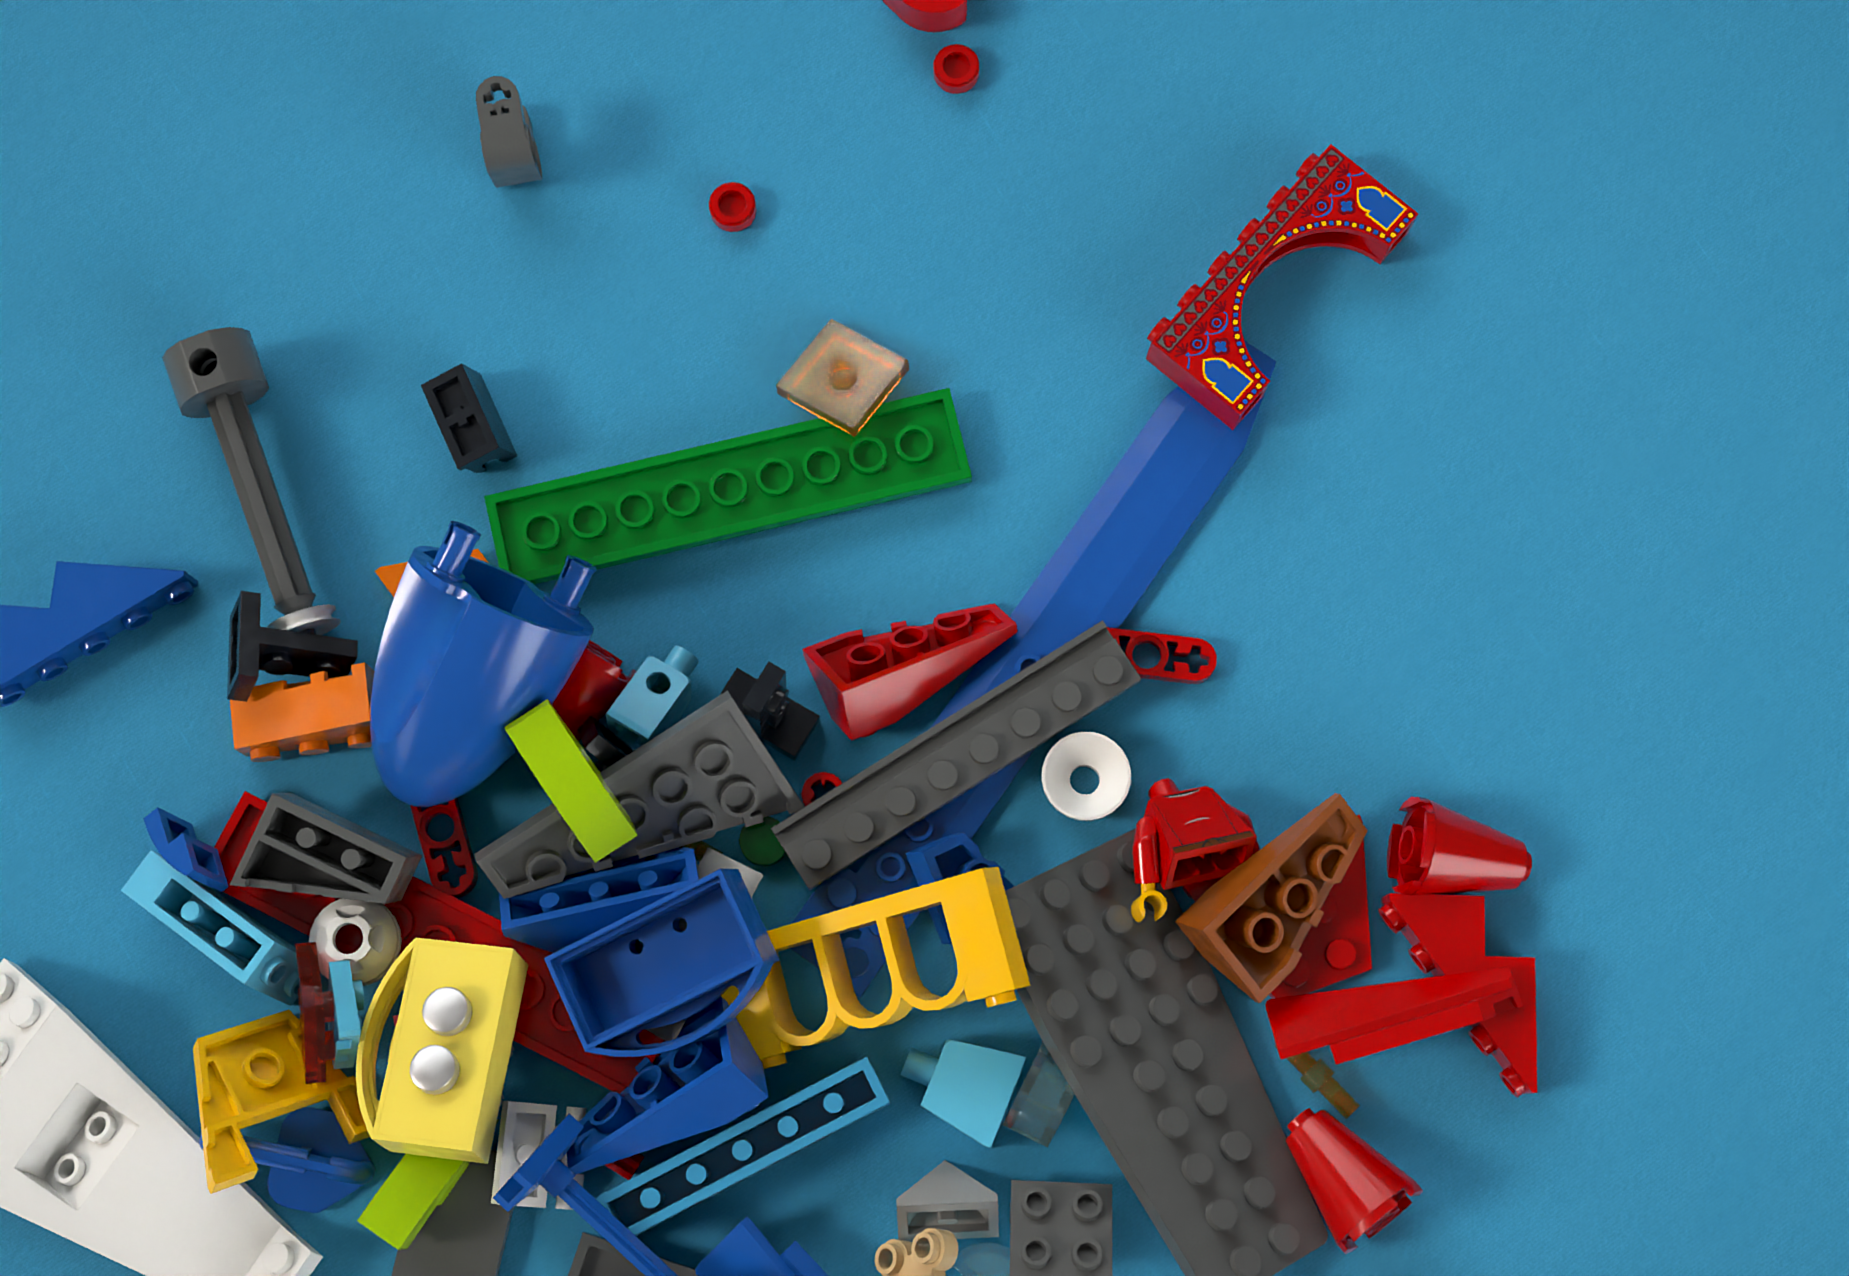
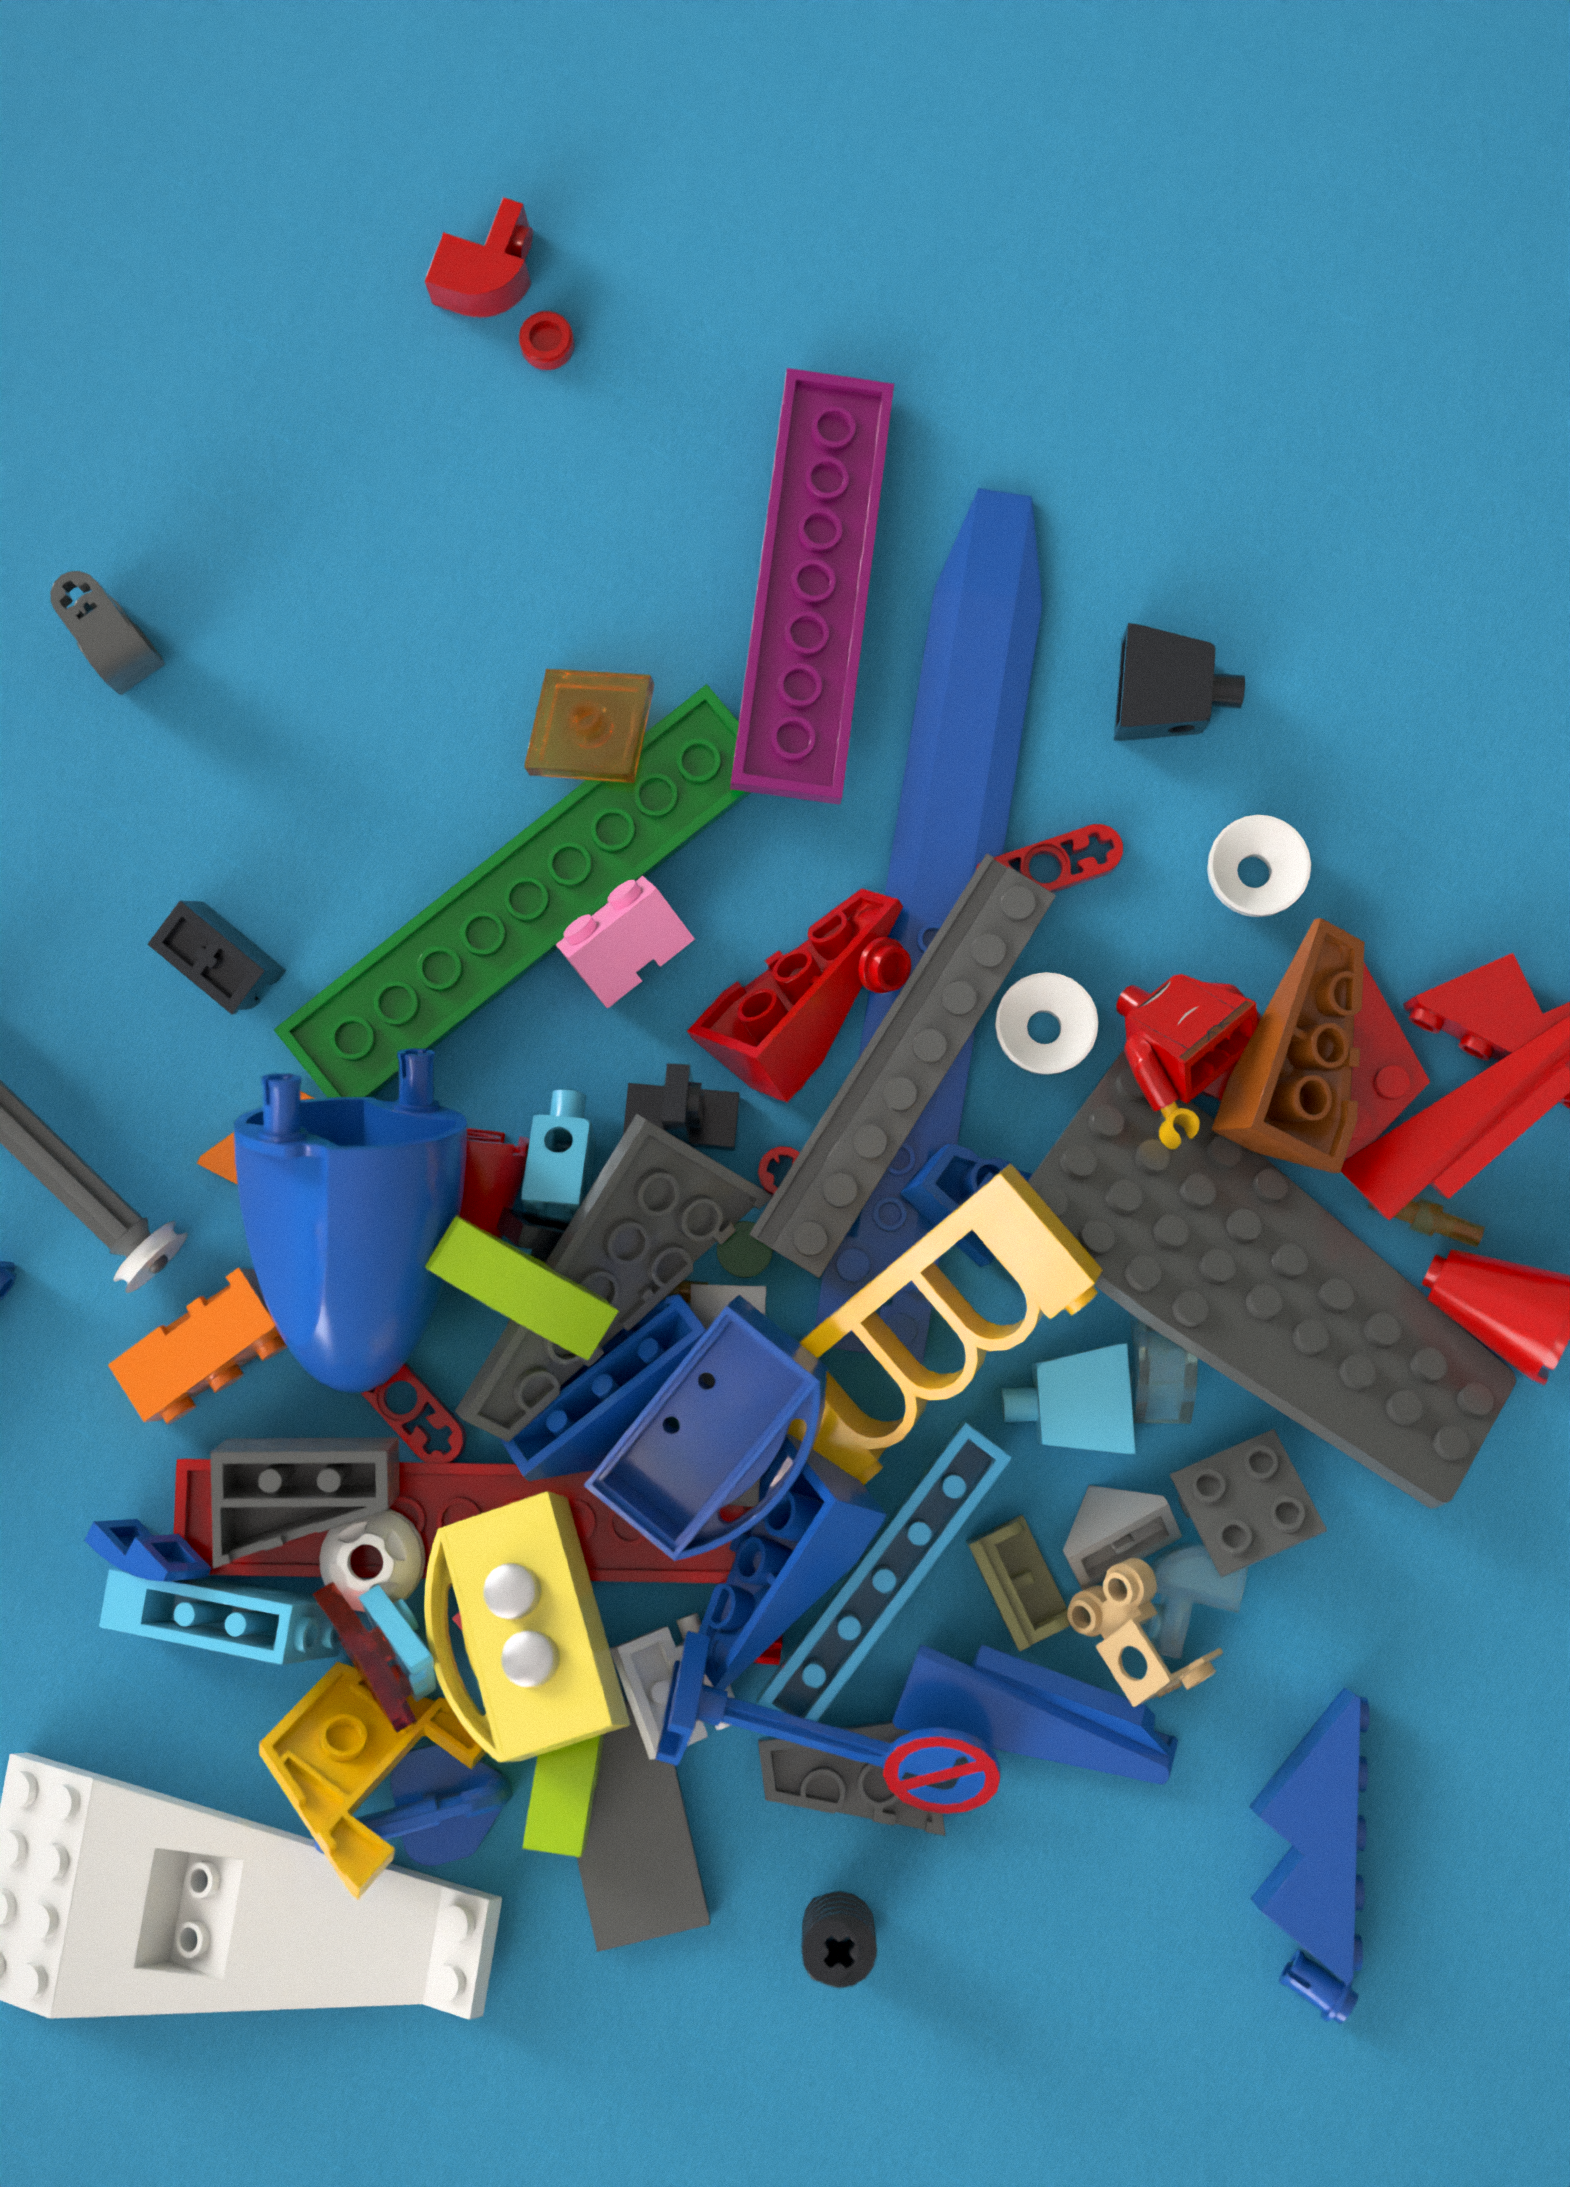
camera: 20 degrees left, 5 degrees up
(278, 650) = (138, 1297): black bracket -> none
(732, 207) = (382, 598): red tile -> none
(786, 554) = (623, 939): none -> bright pink brick
(851, 1208) = (1019, 1582): none -> olive hinge
(979, 669) = (884, 965): none -> red plate
(1067, 352) = (812, 587): none -> magenta plate
(1313, 558) = (1169, 685): none -> black torso
(1327, 206) = (1010, 305): arch -> none
(1332, 715) = (1277, 847): none -> white piece
(1452, 853) = (1455, 924): red cone -> none

